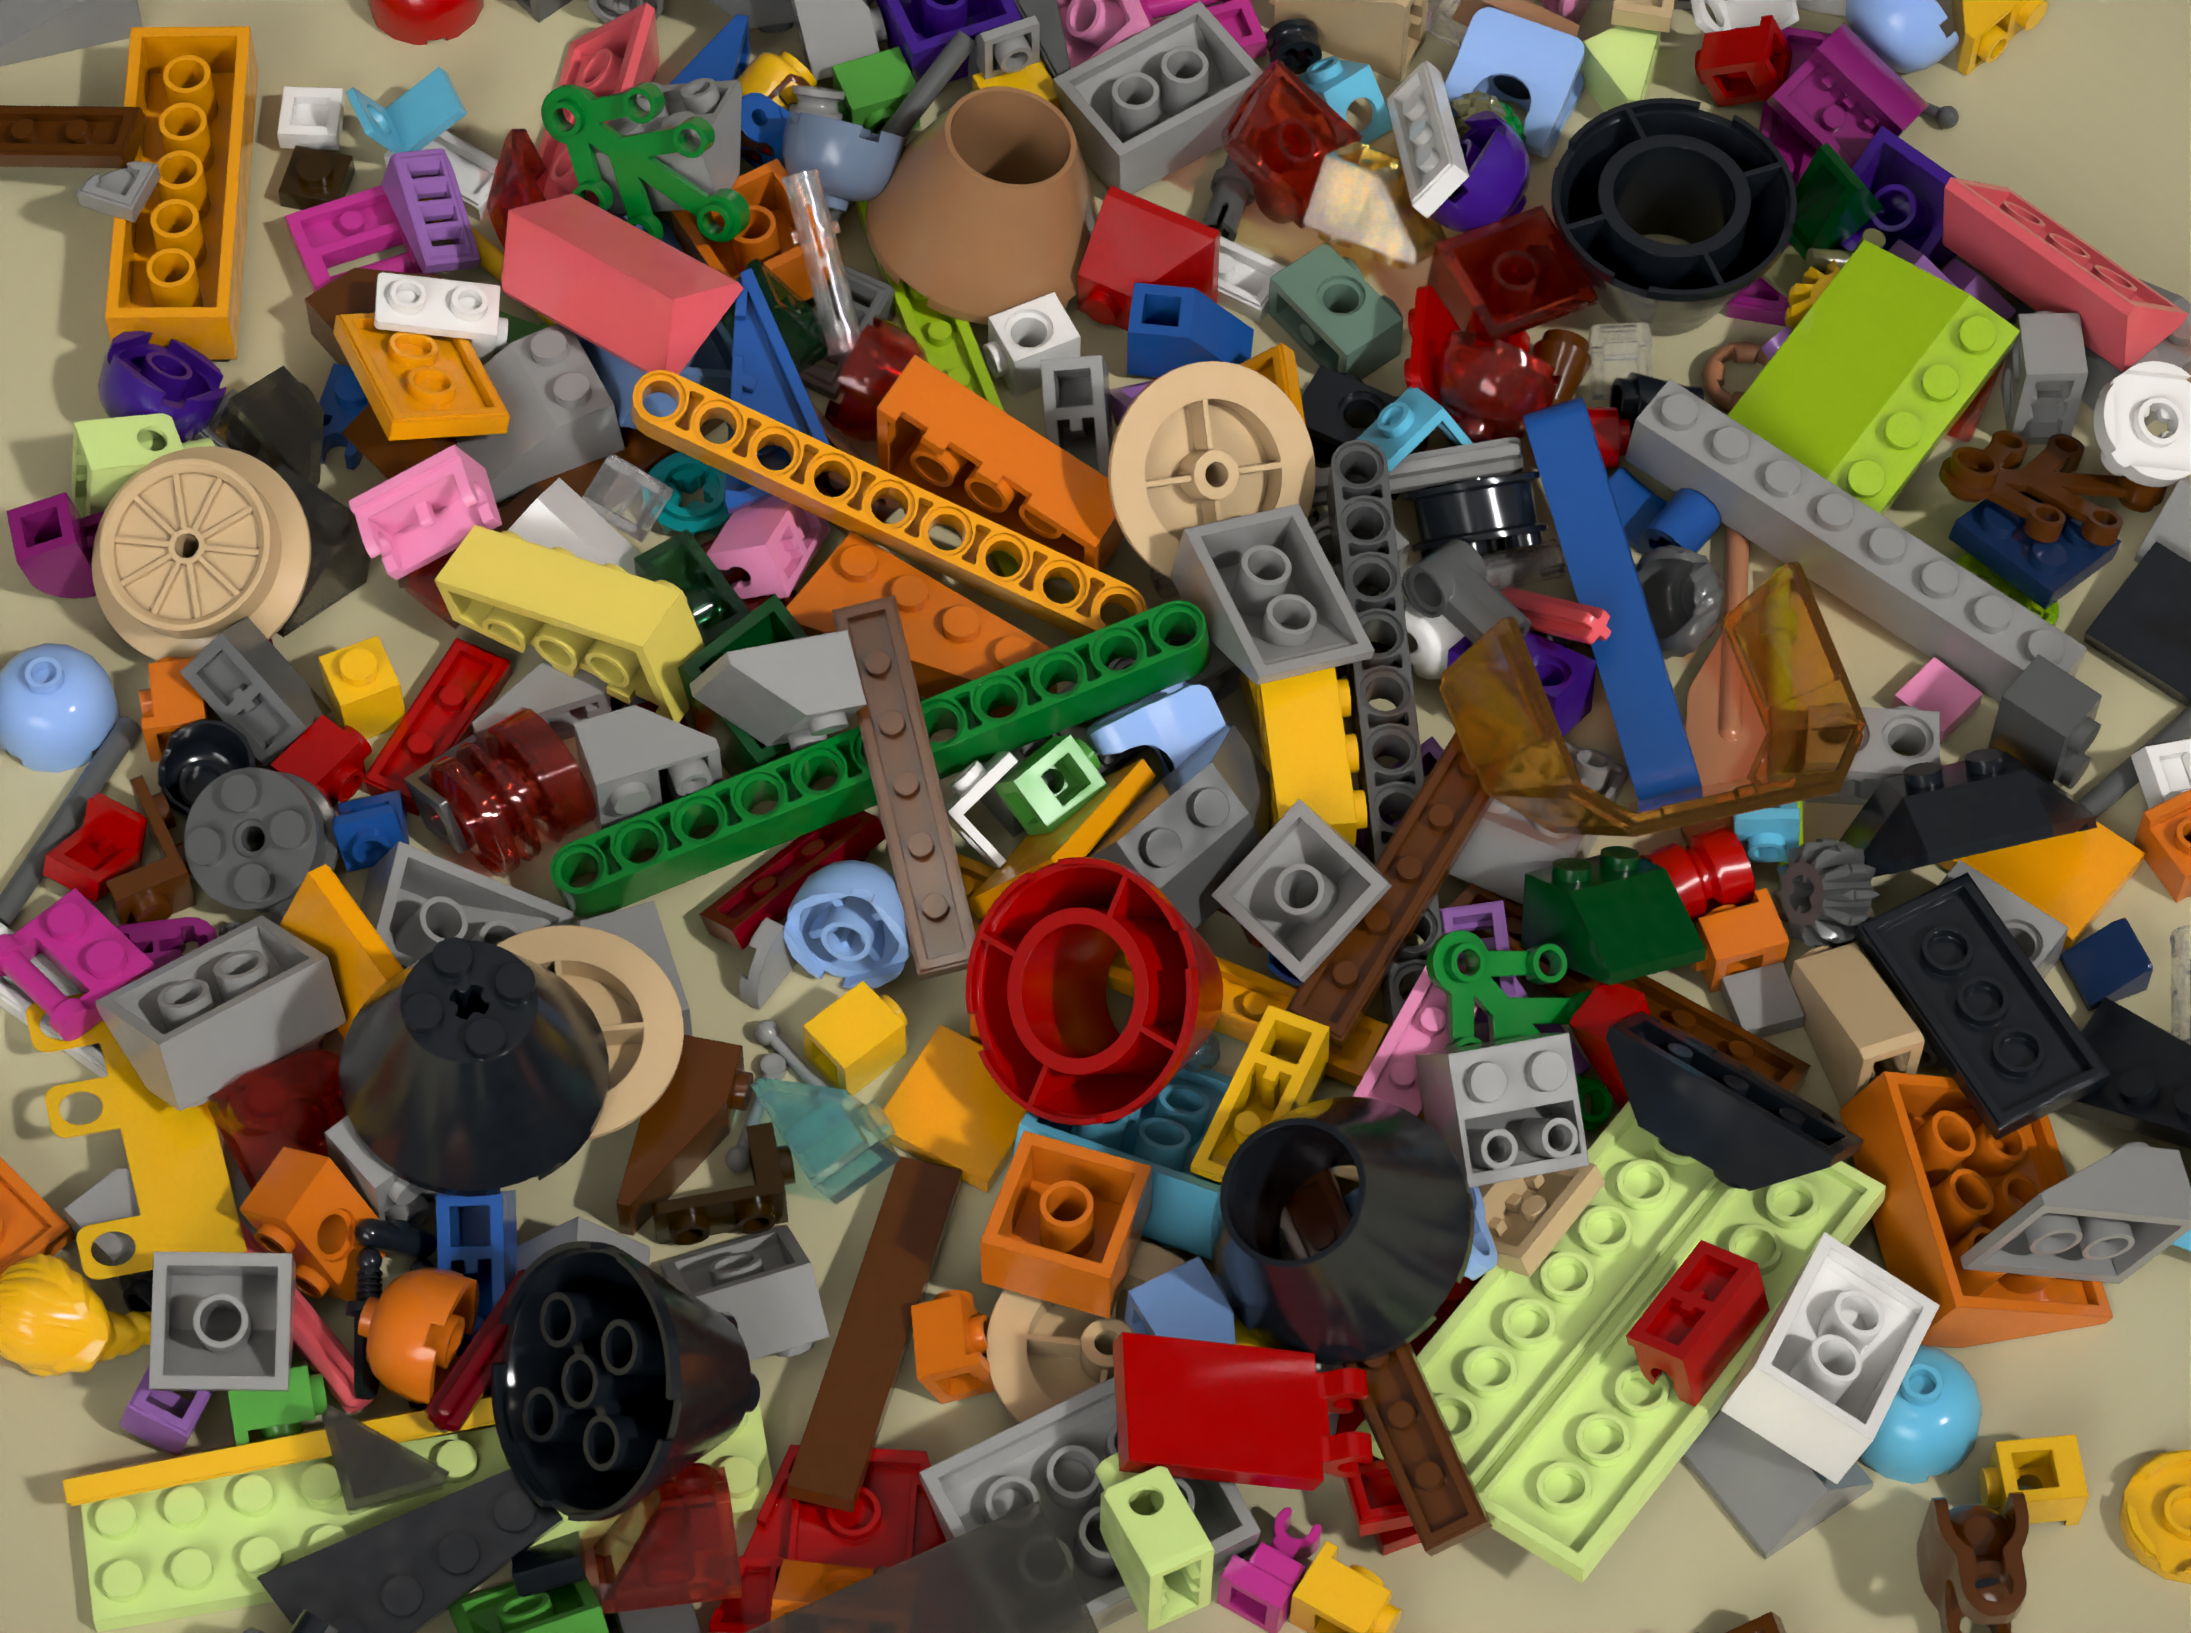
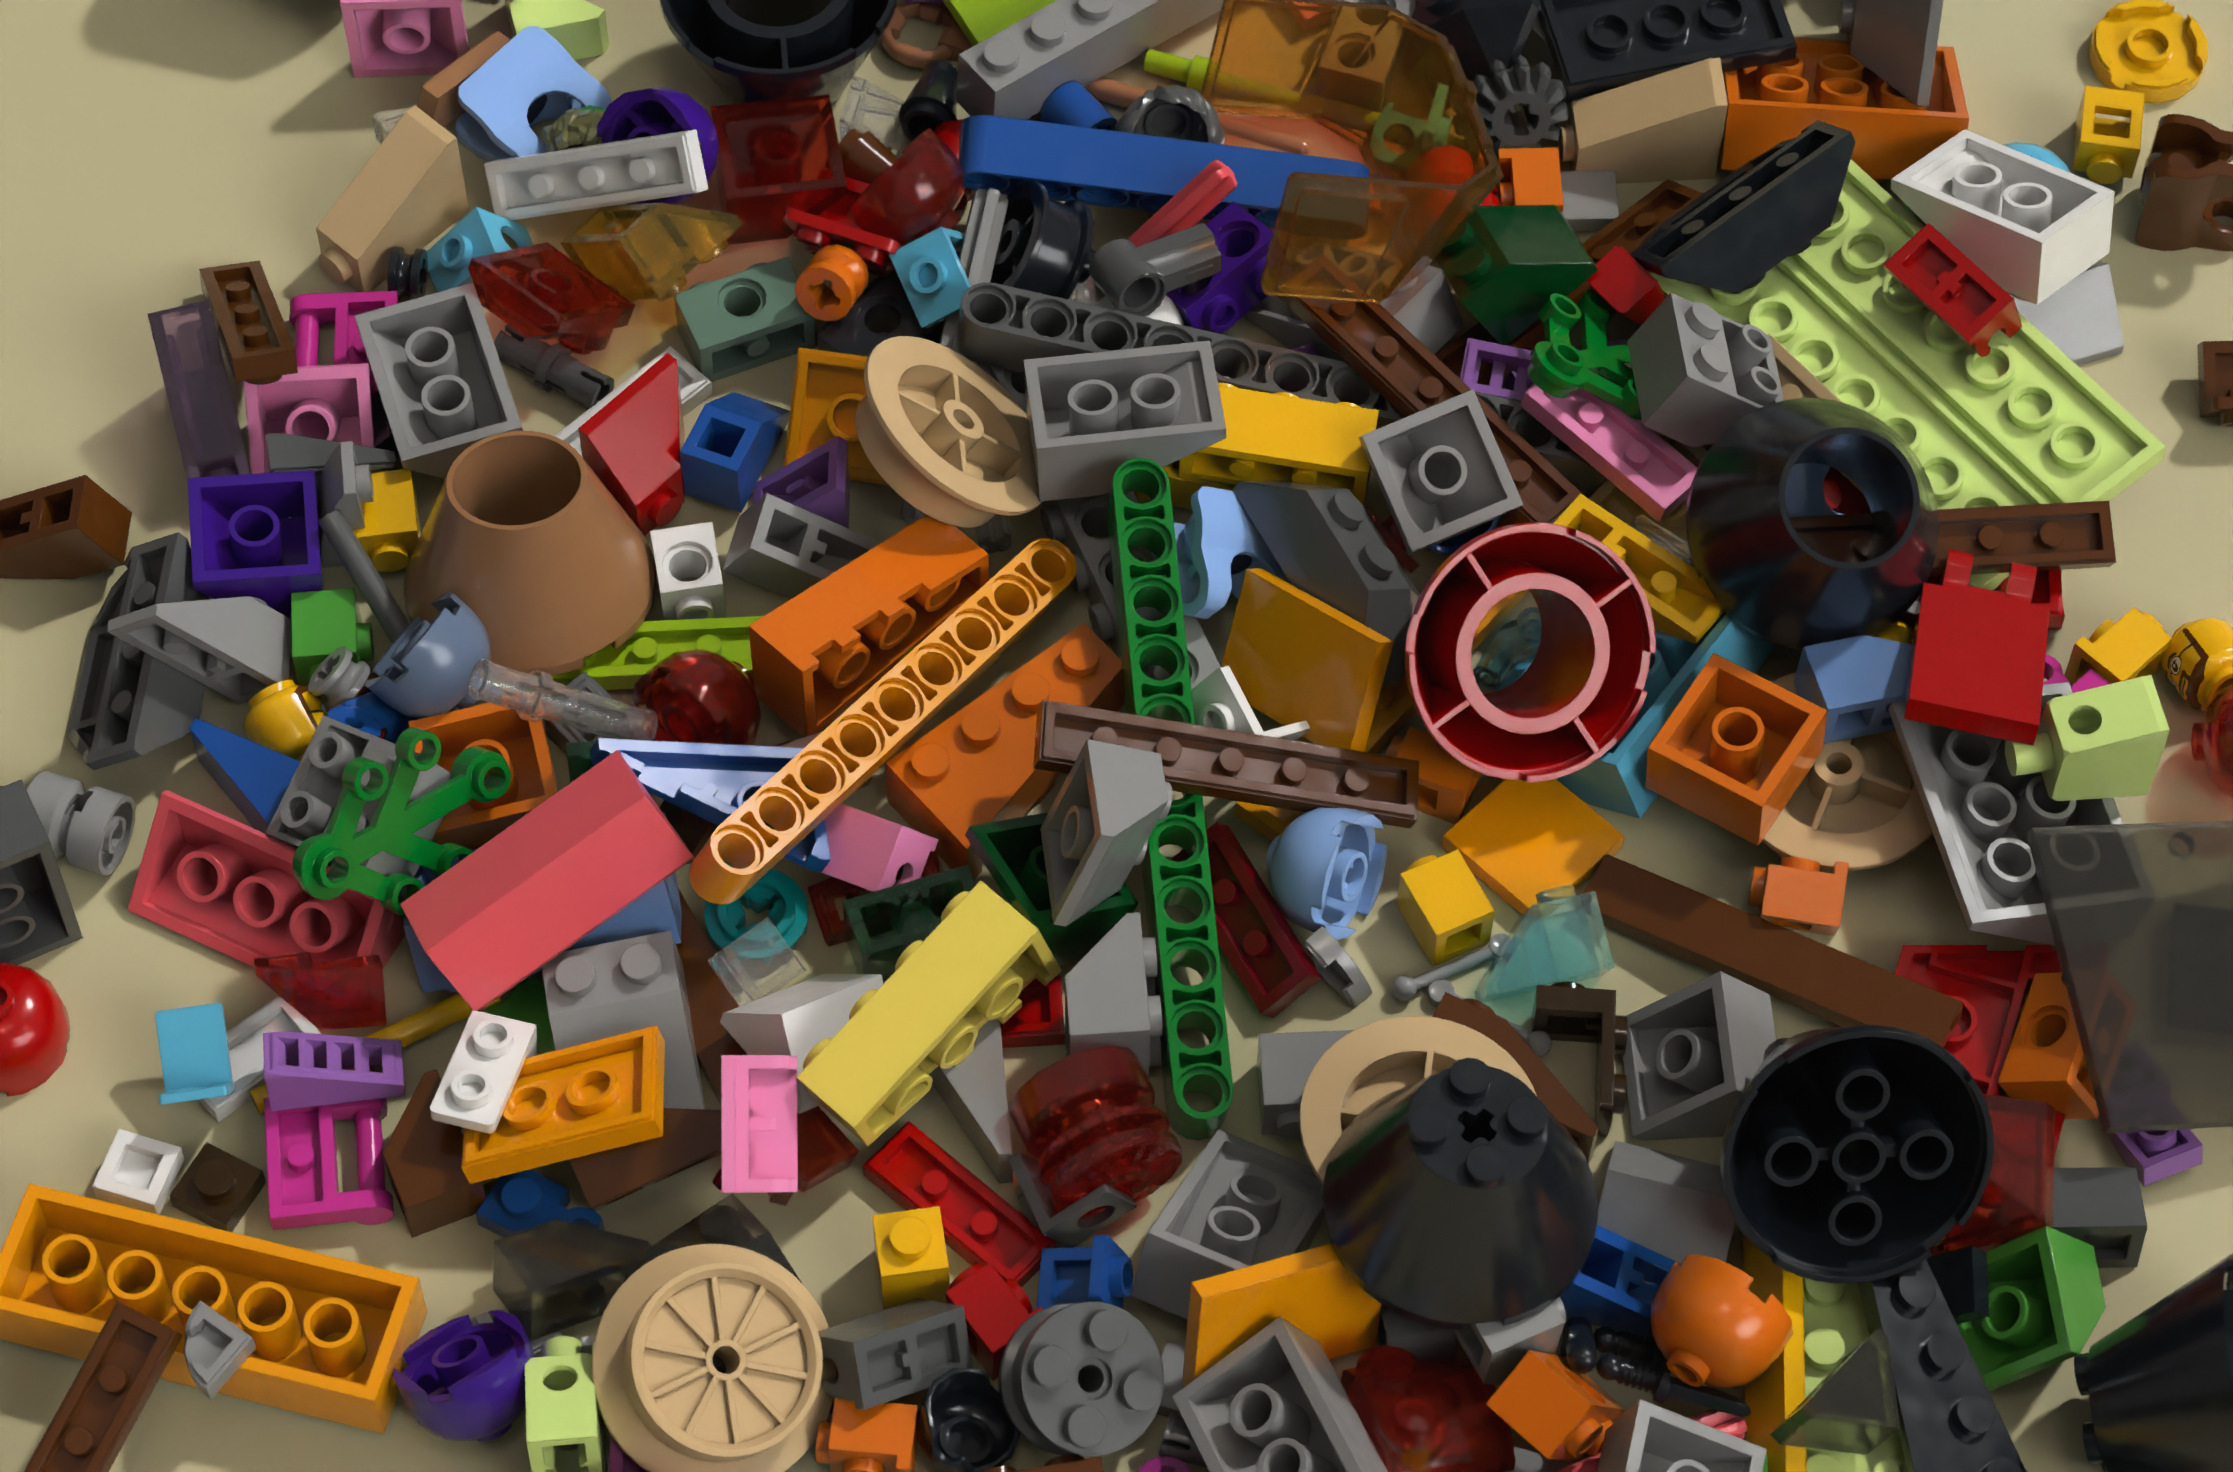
camera: 75 degrees left, 0 degrees up
(471, 1373) = (1679, 1238): dark red axle -> none
(1076, 781) = (1251, 648): bright green brick -> none
(1372, 353) = (847, 280): none -> orange wheel

